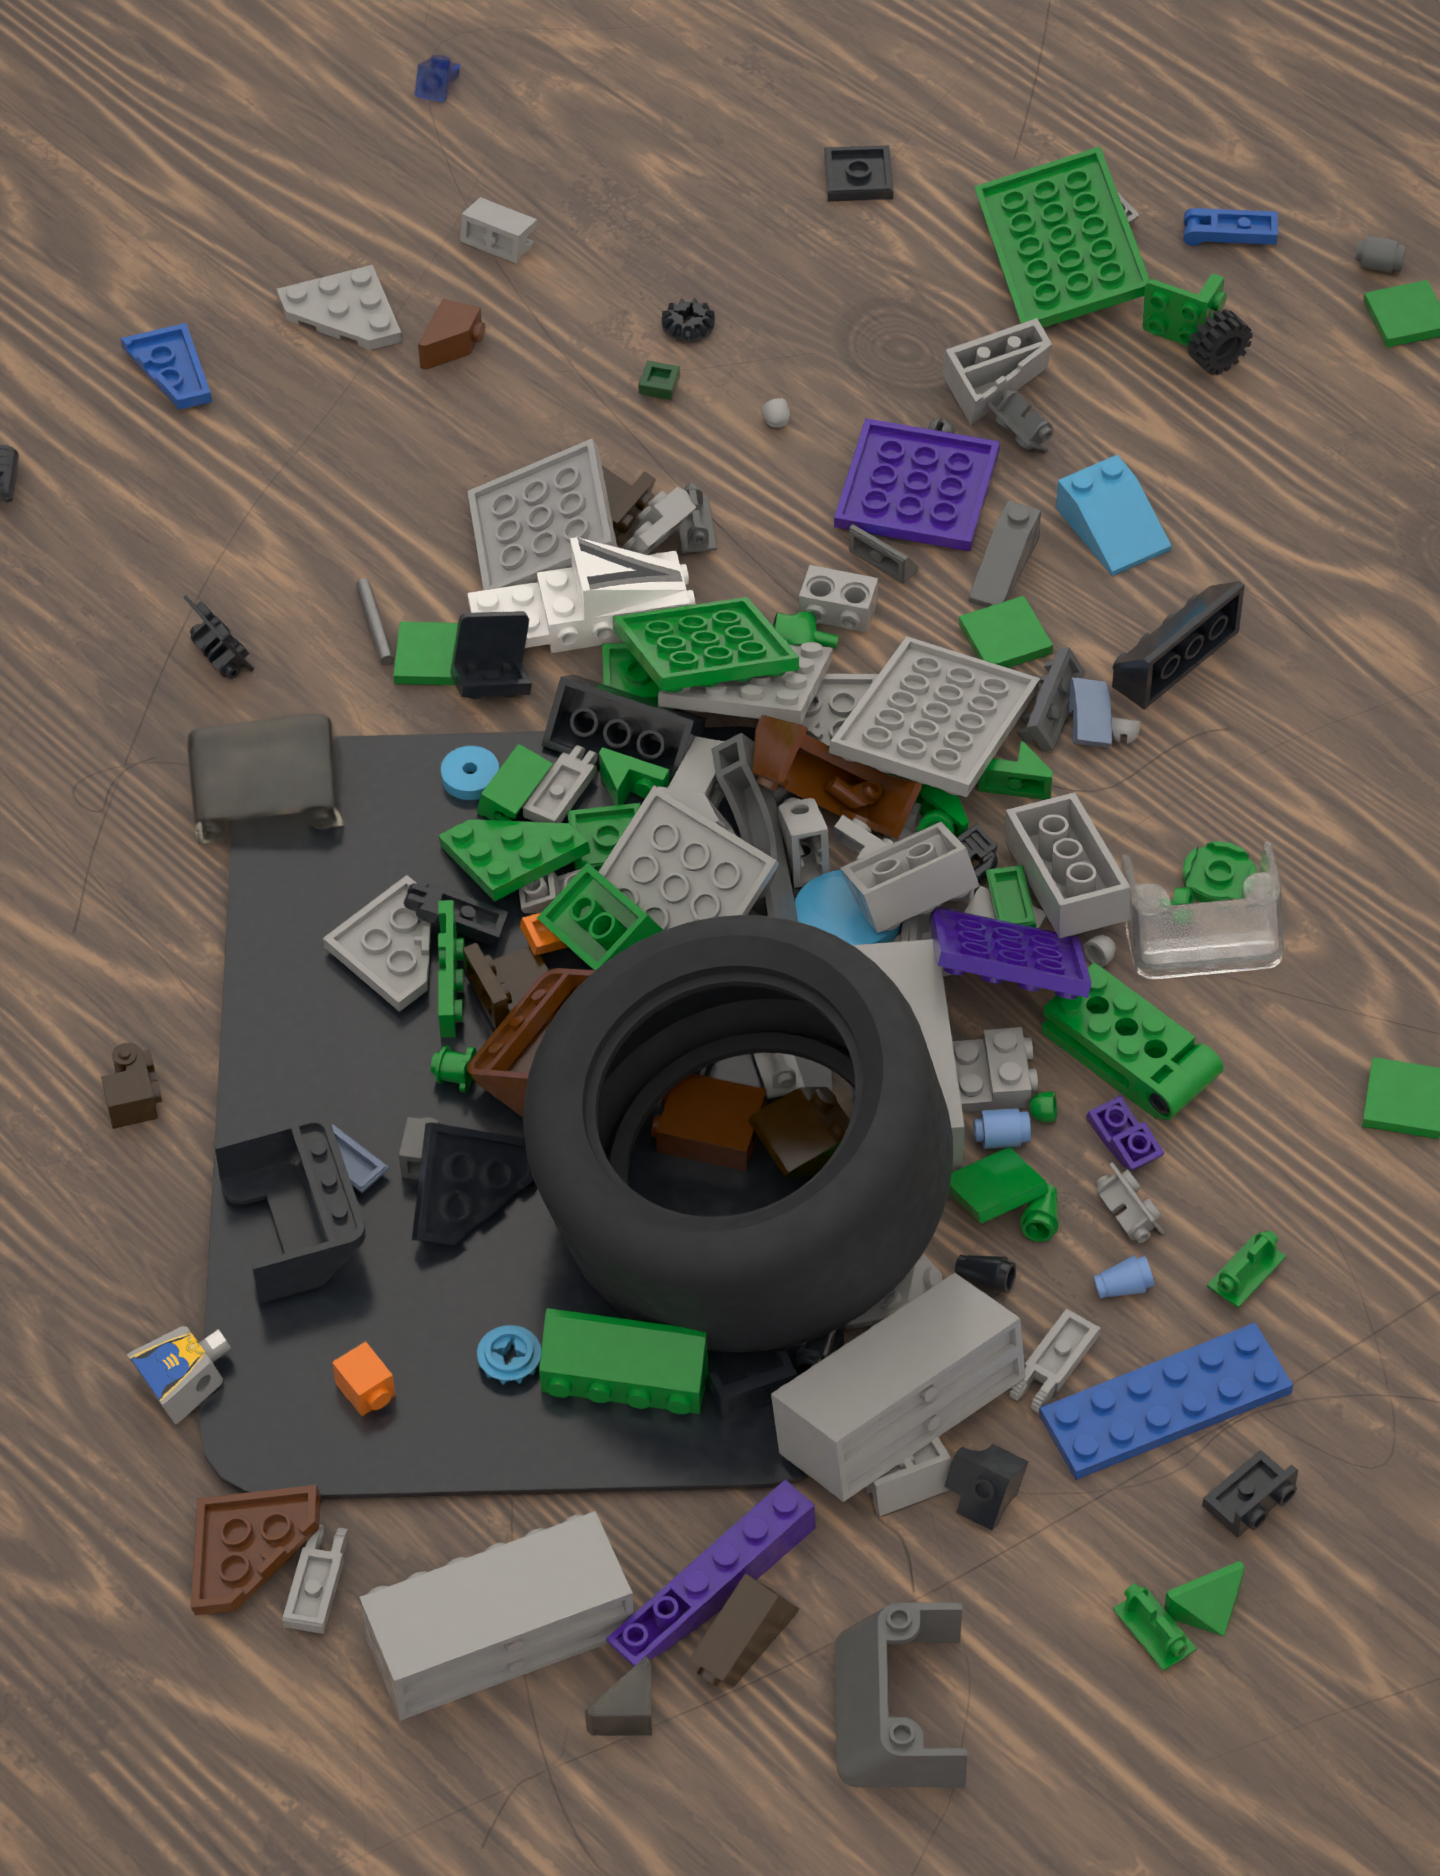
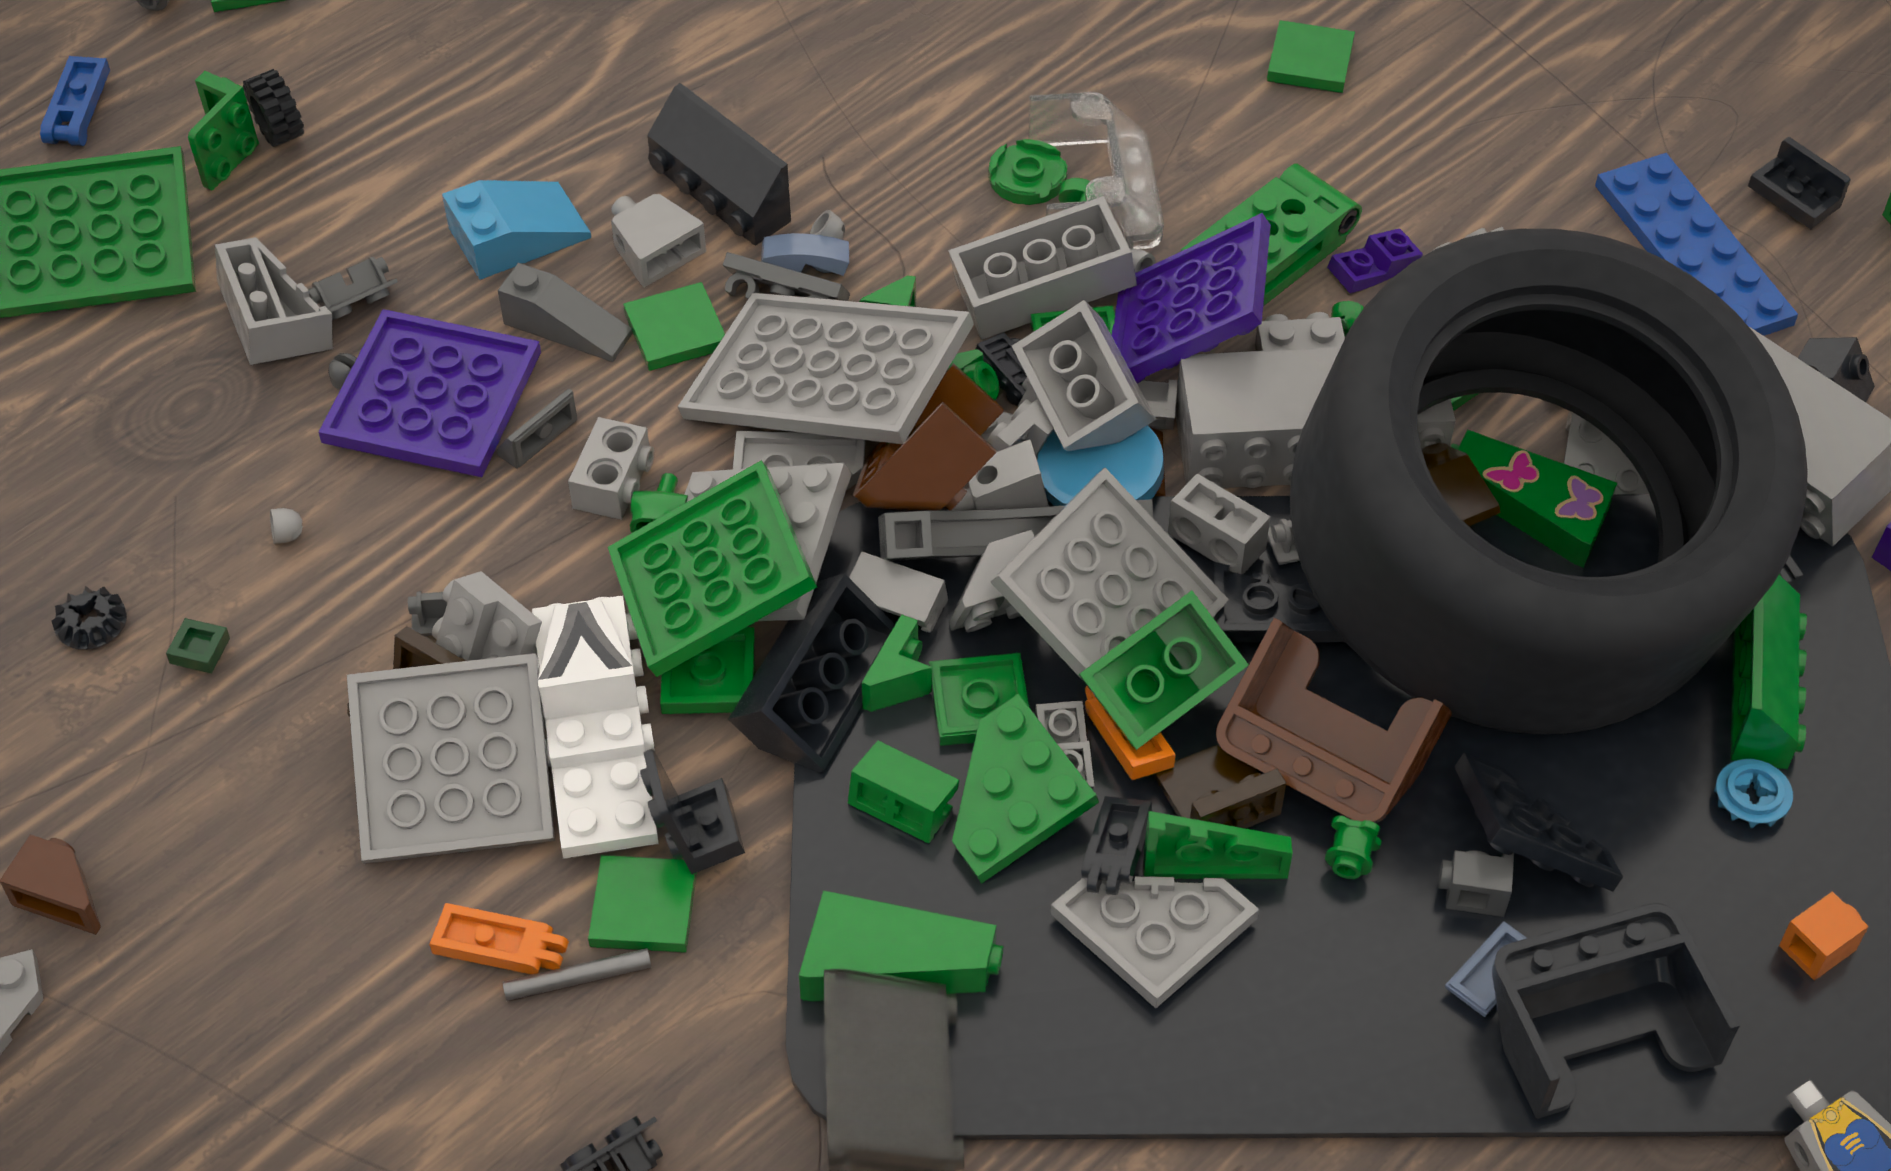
camera: 90 degrees left, 0 degrees up
(373, 781) = (897, 943): none -> green slope
(400, 571) = (497, 940): none -> orange hinge
(465, 760) = (871, 865): dark azure piece -> none
(561, 786) = (903, 733): light grey hinge -> none
(1100, 607) = (655, 236): none -> light grey torso
(1248, 1268) = (1539, 182): green hinge -> none

